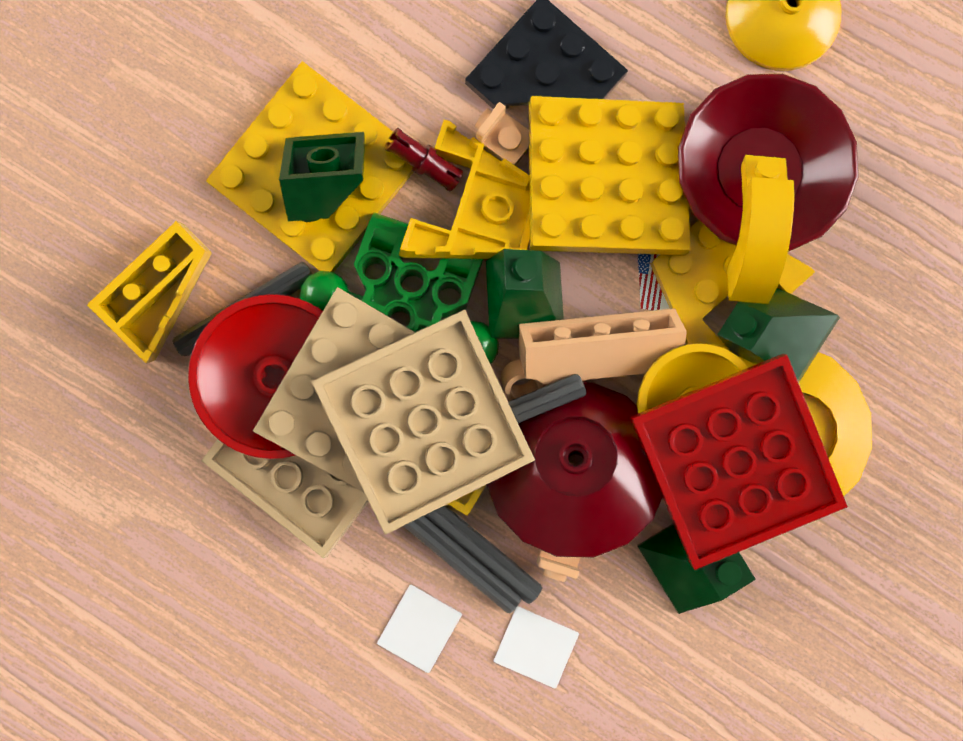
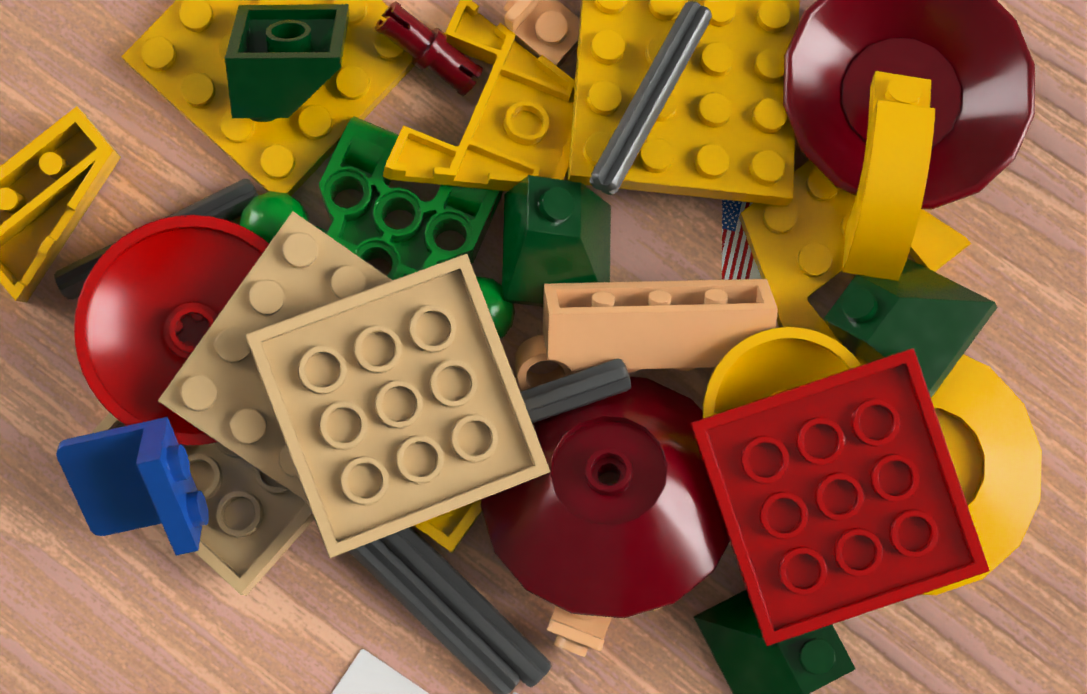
camera: 10 degrees right, 5 degrees down
(242, 486) = (135, 481): none -> blue bracket
(586, 186) = (650, 98): none -> dark grey axle

